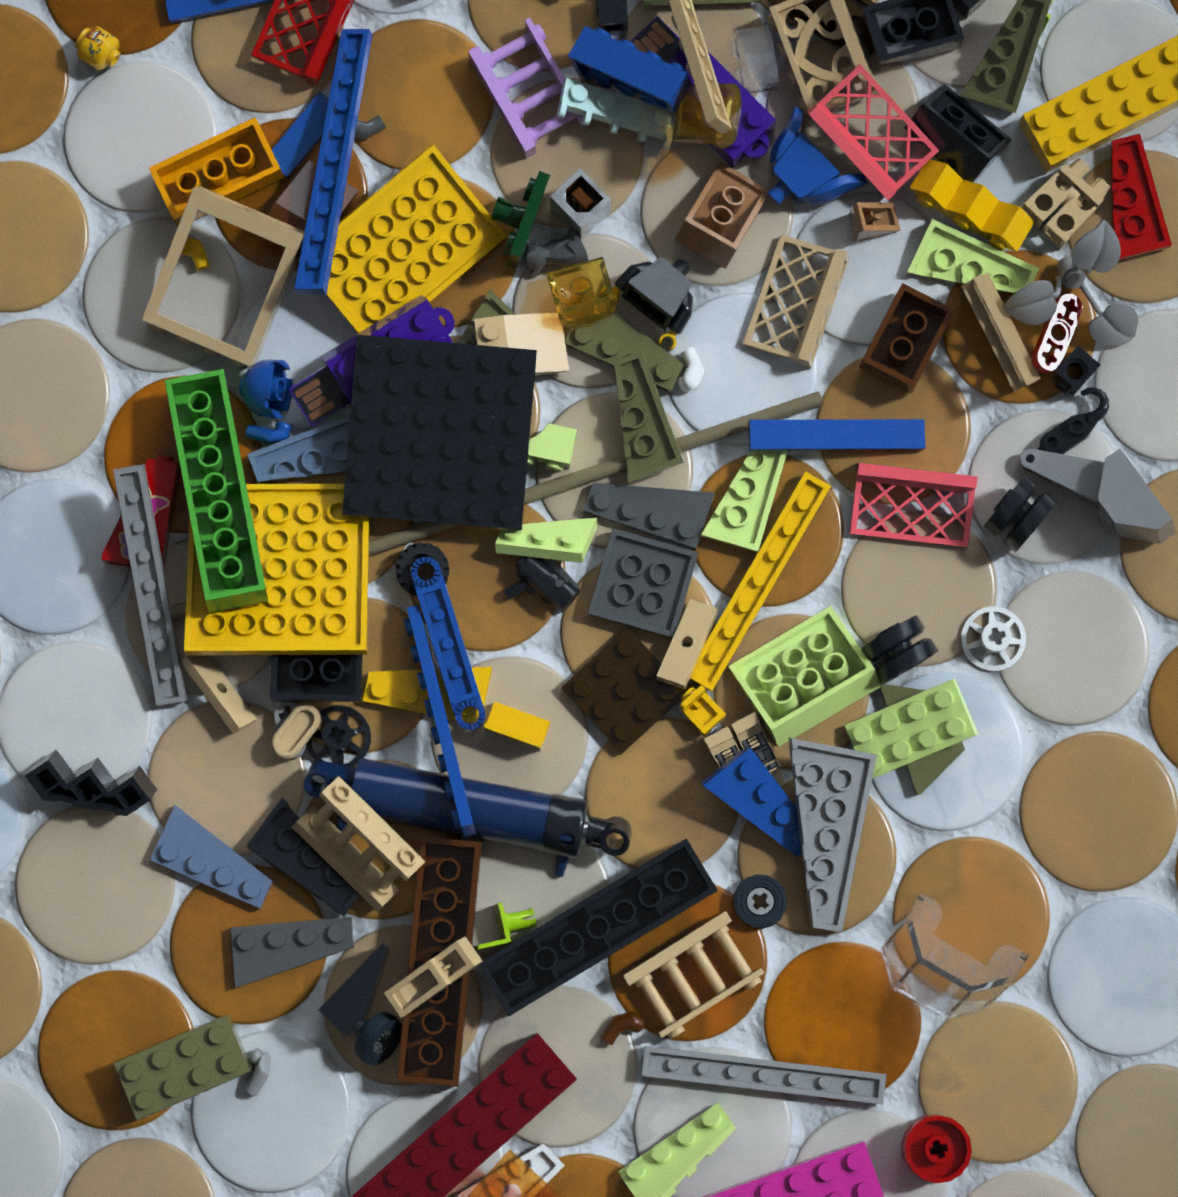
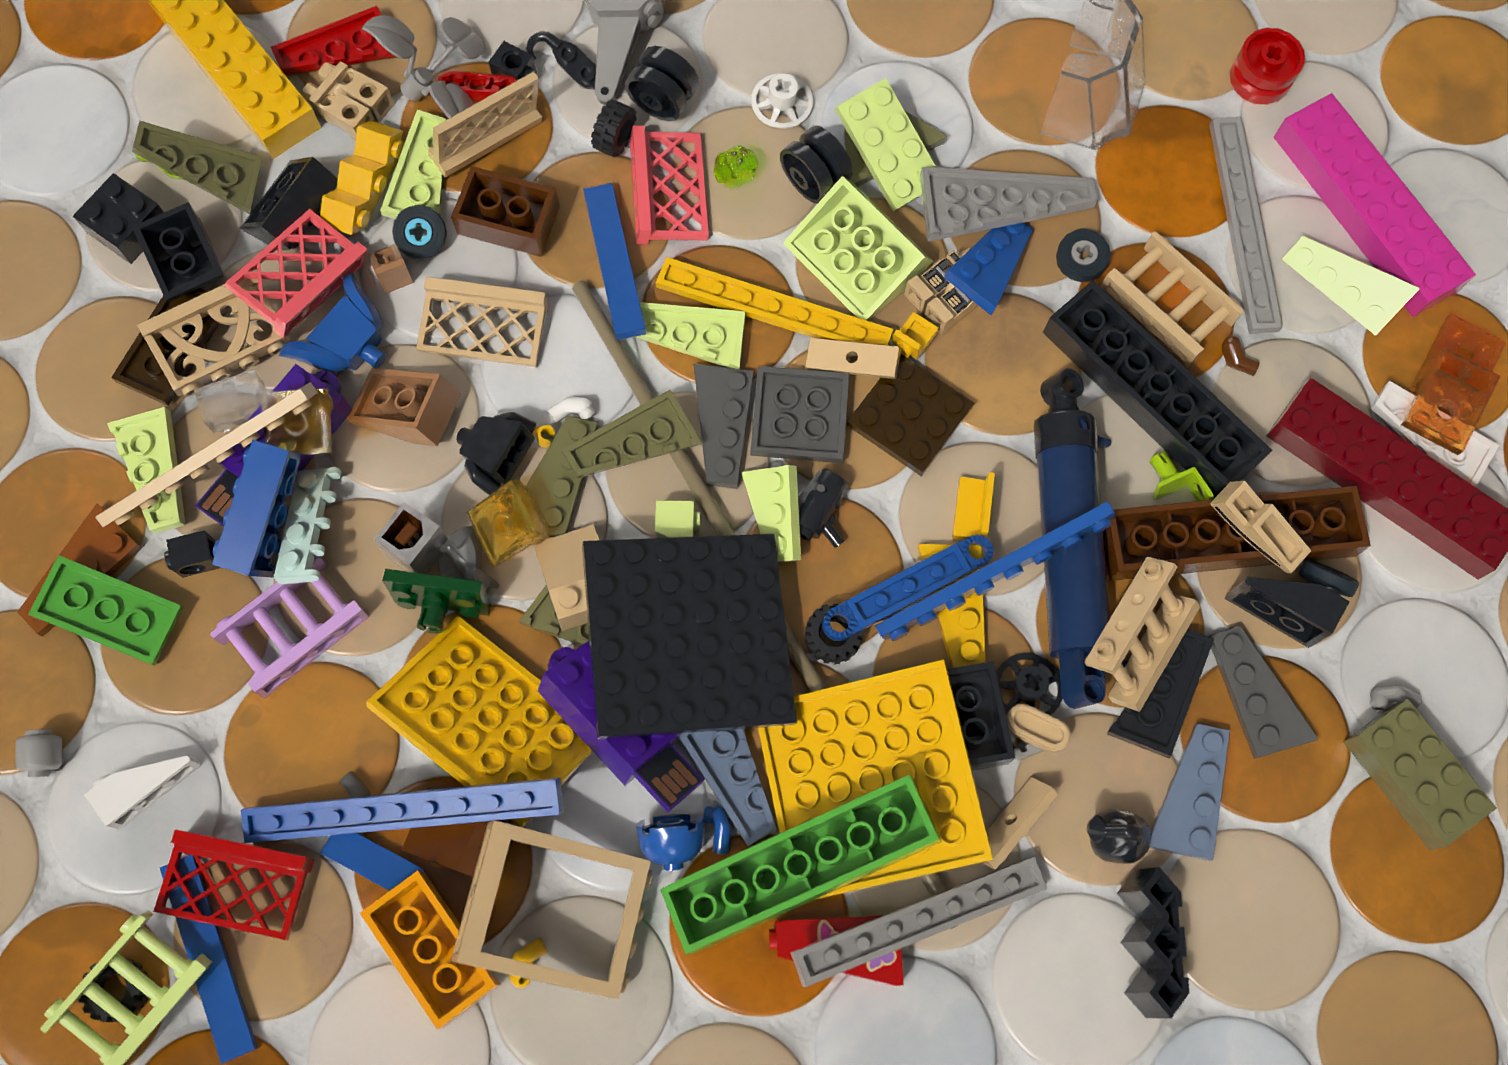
camera: 100 degrees left, 10 degrees down
(187, 779) = (1119, 836): none -> black piece
(910, 264) = (429, 220): none -> black bush
(919, 573) = (735, 166): none -> clear neon green head
(980, 458) = (613, 128): none -> black tyre

